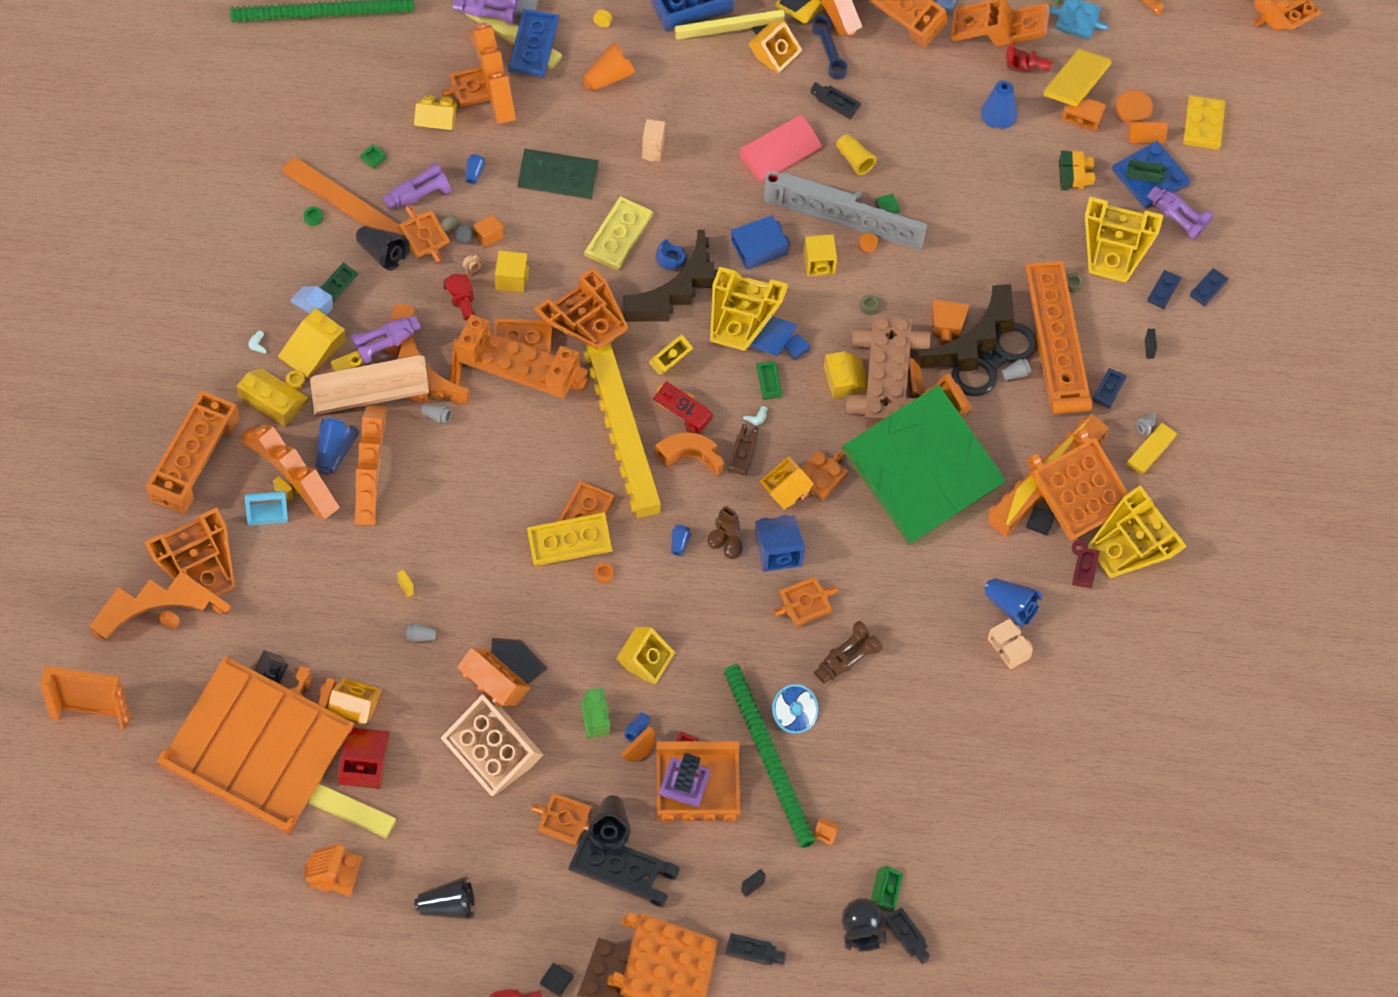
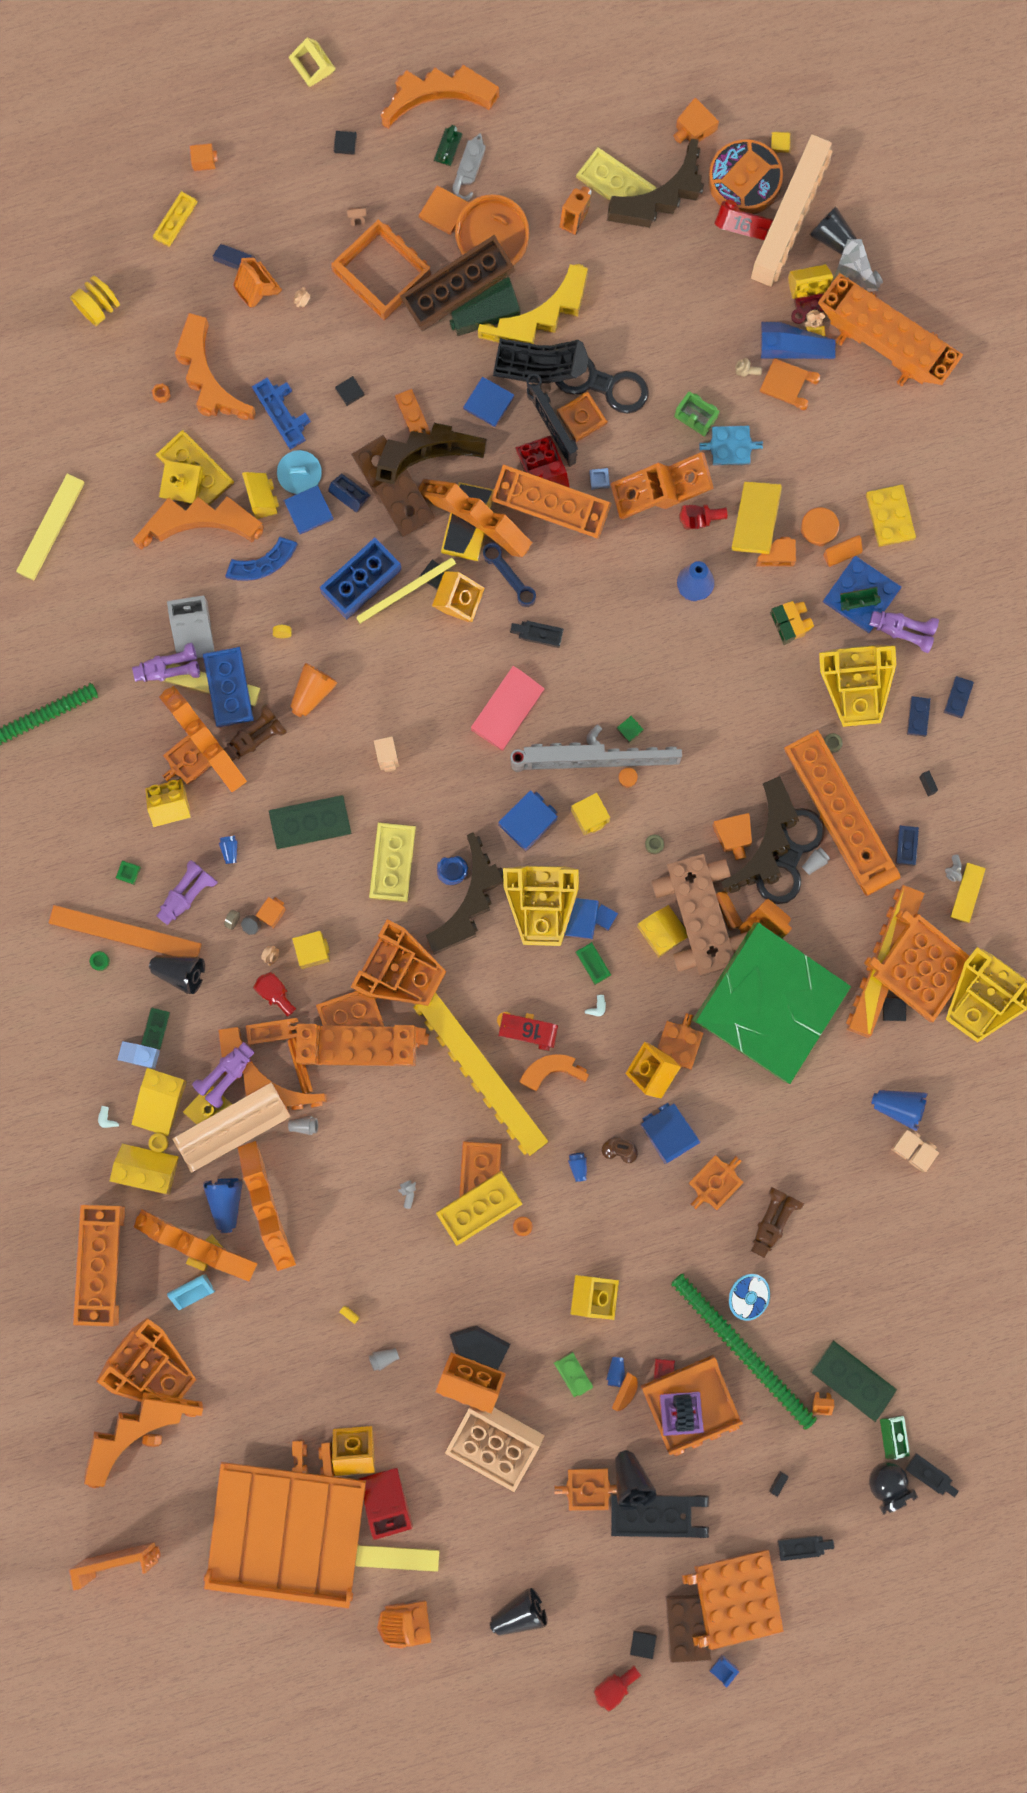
camera: 15 degrees left, 20 degrees up
(271, 666) = (264, 1447): black panel -> none
(424, 234) = (212, 942): orange plate -> none
(441, 325) = (271, 1031): none -> orange hinge
(510, 499) = (408, 1189): none -> light grey plate
(527, 90) = (243, 742): none -> reddish brown piece
(670, 355) = (495, 979): yellow brick -> none
(742, 451) = (599, 1050): reddish brown hinge -> none
(857, 156) = (580, 687): yellow plant -> none
(865, 823) = (853, 1381): none -> clear green slope
(1085, 565) = (952, 1041): dark red hinge -> none

